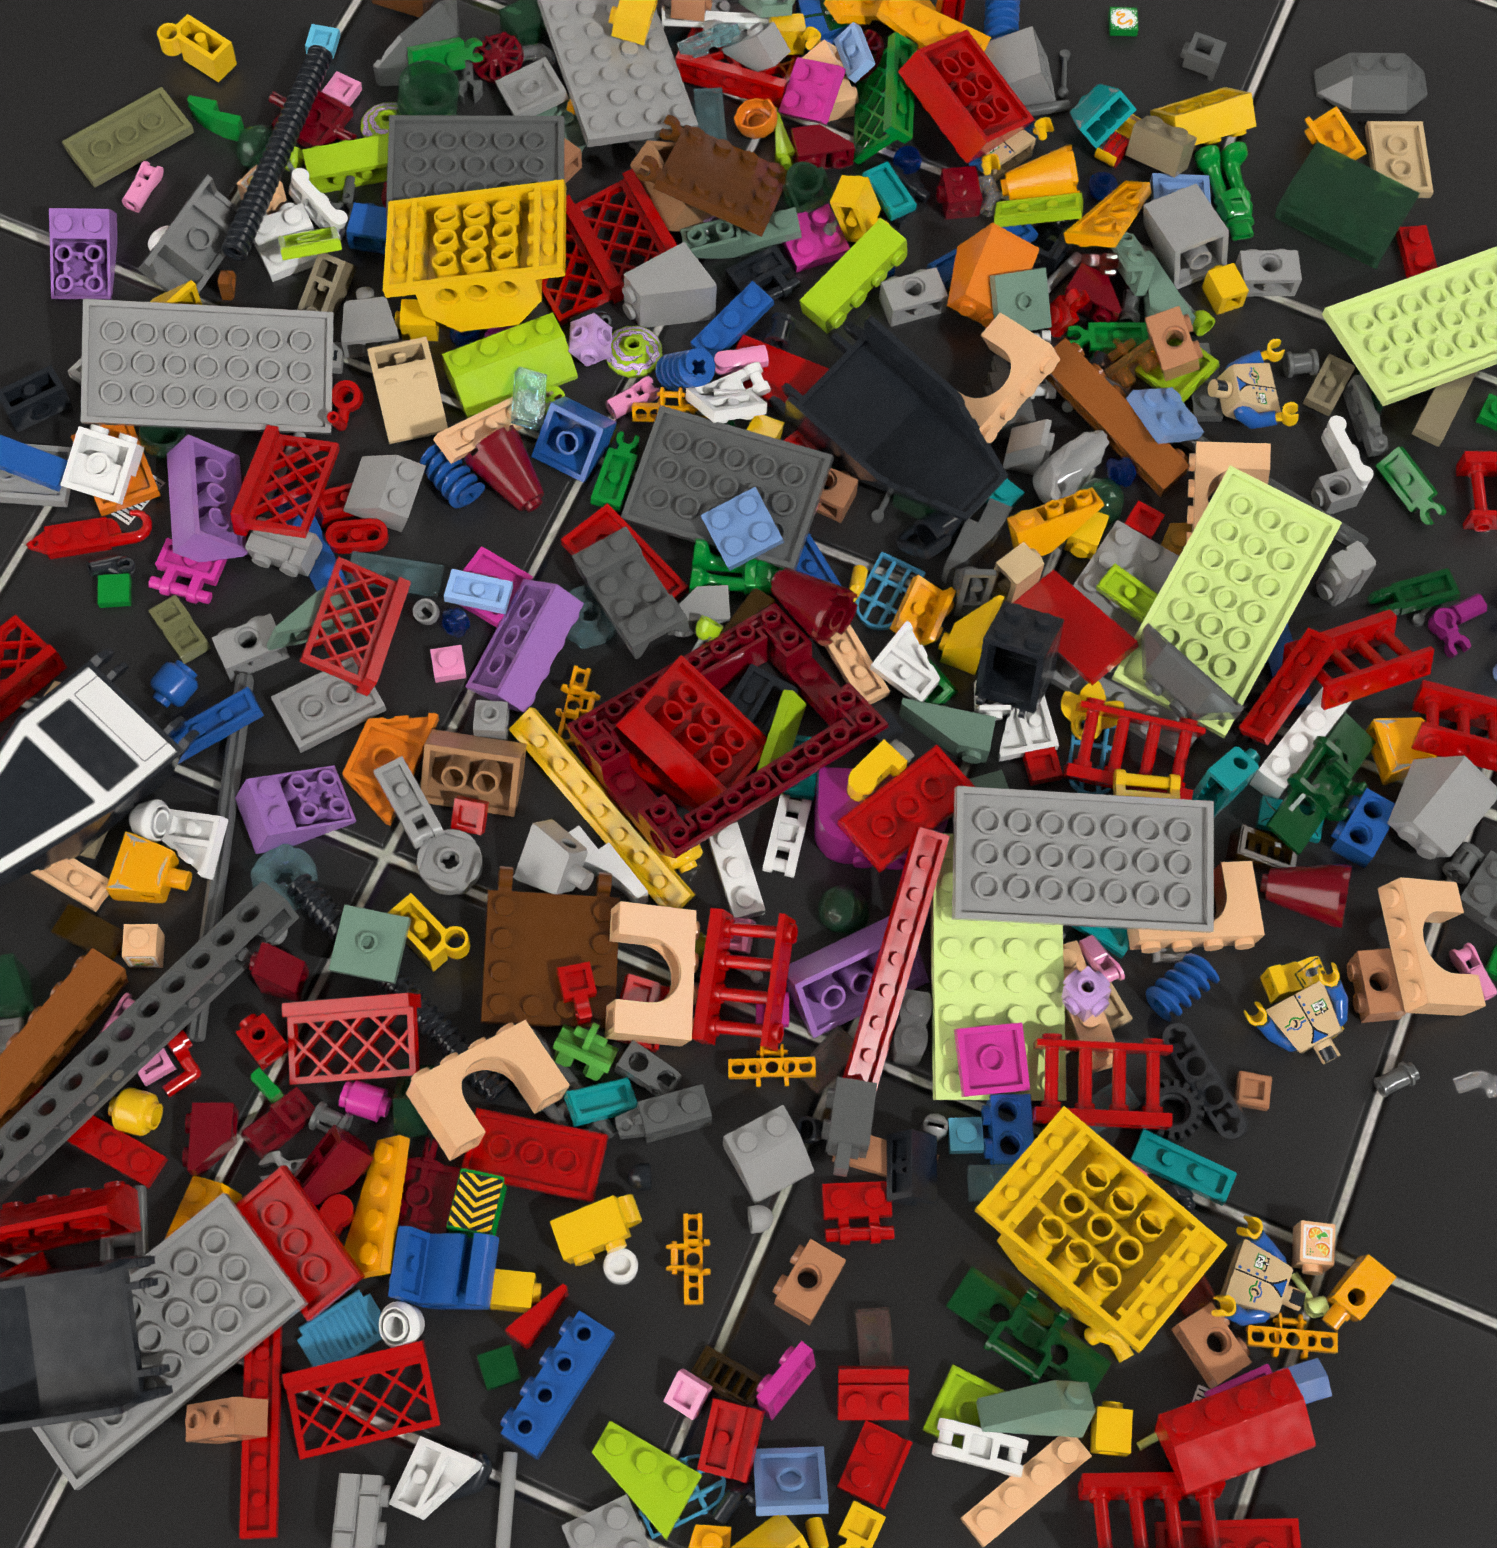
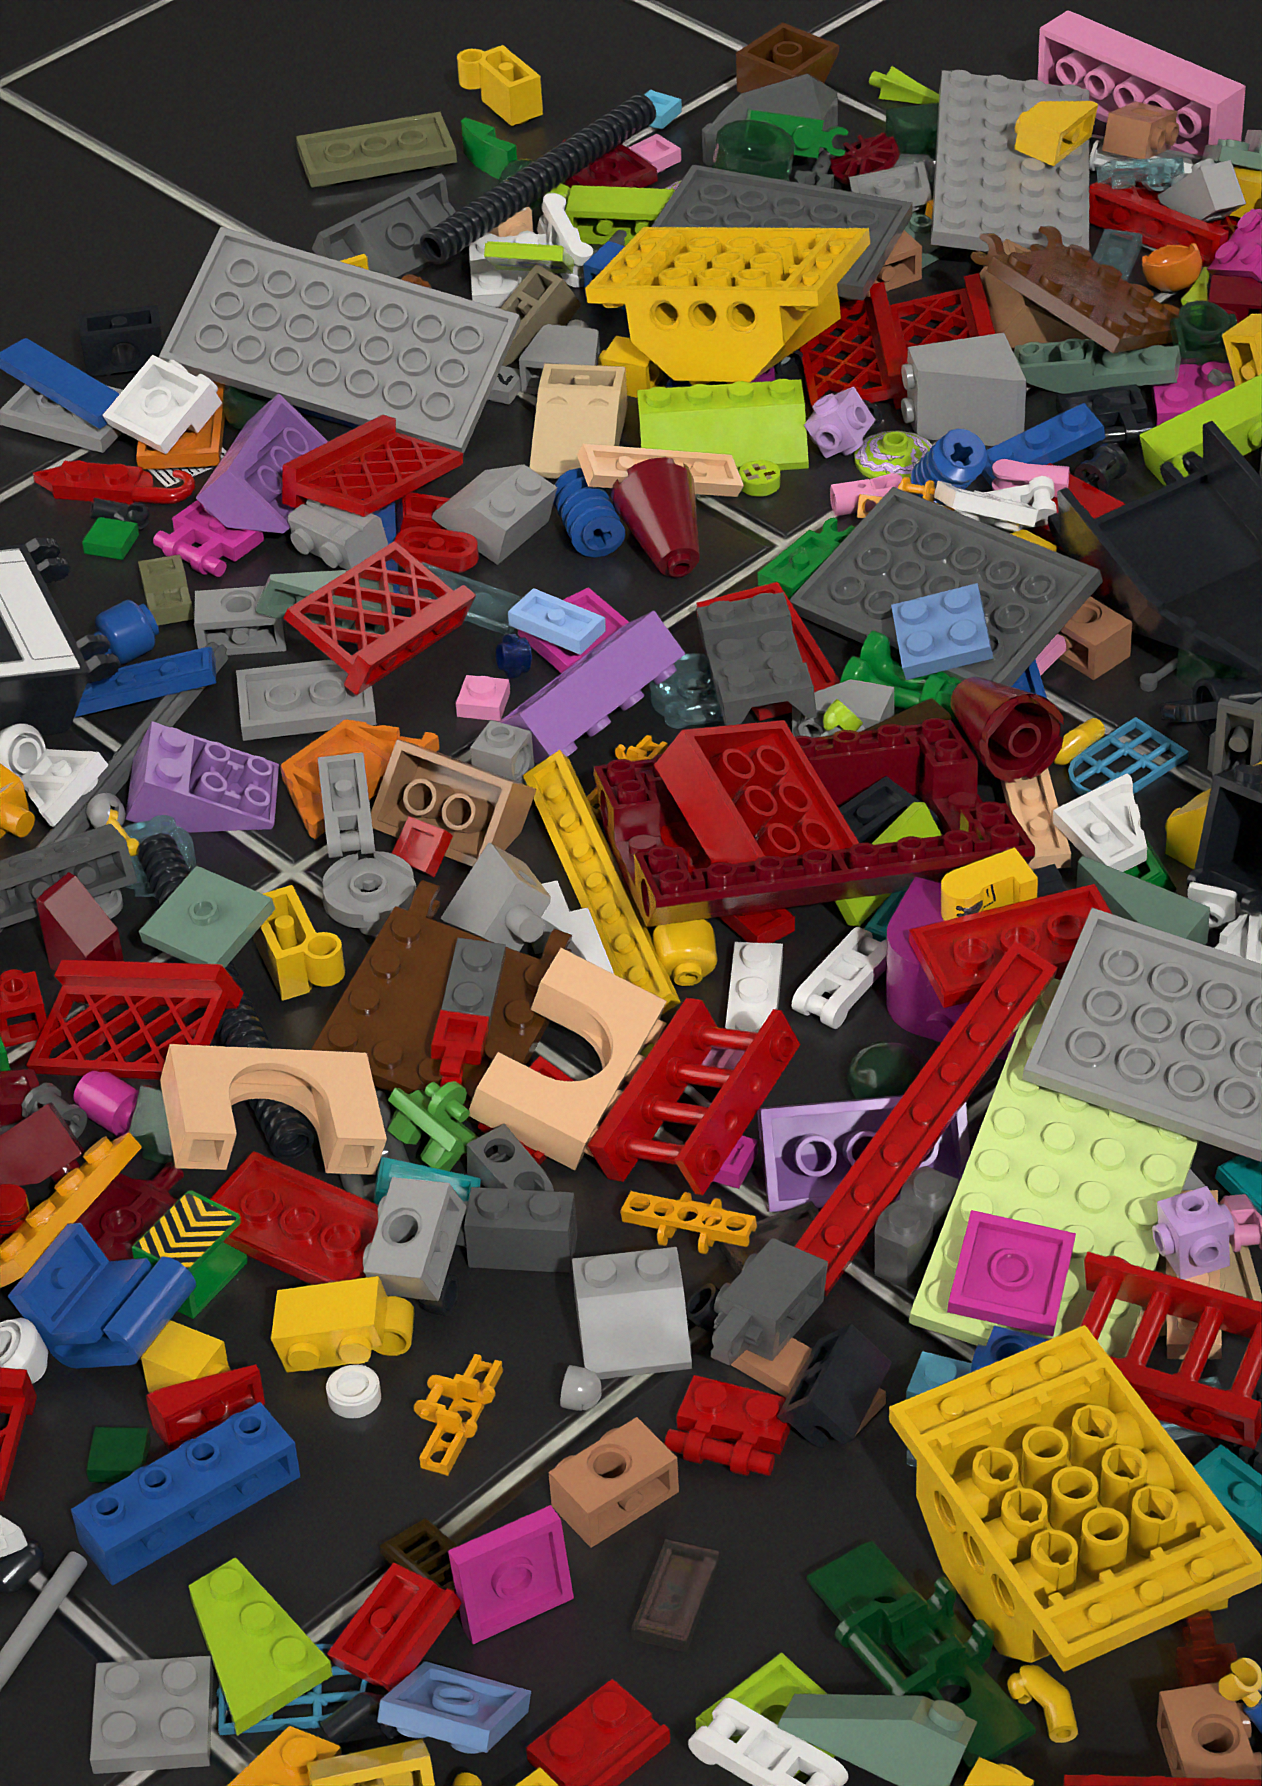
camera: 30 degrees right, 25 degrees down
(82, 253) = (272, 210): medium lavender slope -> none
(142, 188) = (366, 193): bright pink bar -> none
(242, 855) = (100, 814): none -> light grey hinge
(340, 390) = (499, 420): red plate -> none
(422, 618) = (478, 629): light grey hinge -> none
(528, 398) = (727, 459): clear light blue plate -> none
(564, 933) = (474, 977): none -> dark grey plate
(573, 438) = (765, 511): blue slope -> none
(629, 1138) = (420, 1265): none -> light grey brick
(687, 1394) = (363, 1560): bright pink plate -> none
(873, 1393) = (639, 1646): red plate -> none
(925, 609) = (1166, 779): light orange bracket -> none
(933, 1130) = (899, 1352): light grey hinge -> none

